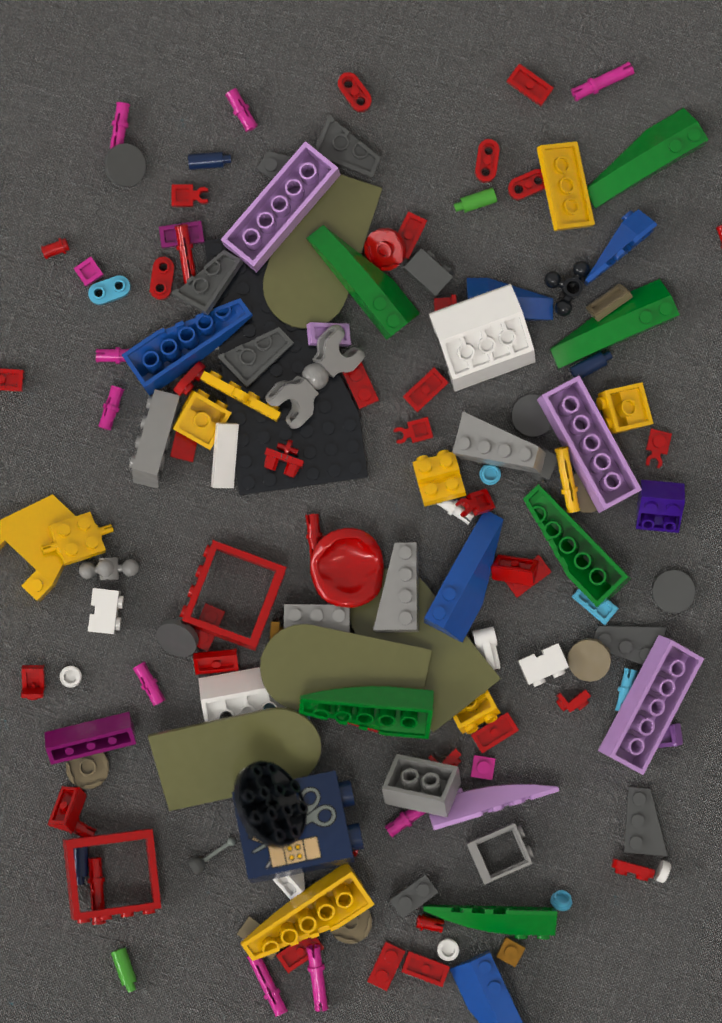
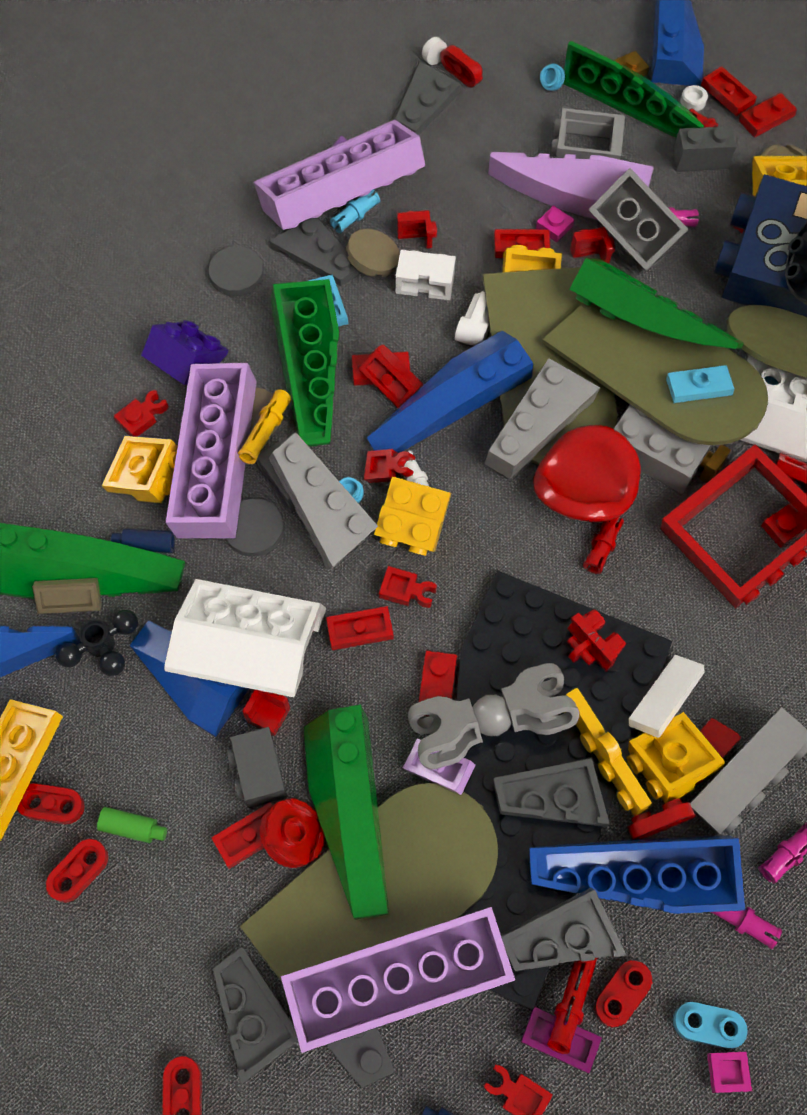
camera: 150 degrees left, 20 degrees down
(311, 668) = (700, 384): none -> medium azure plate

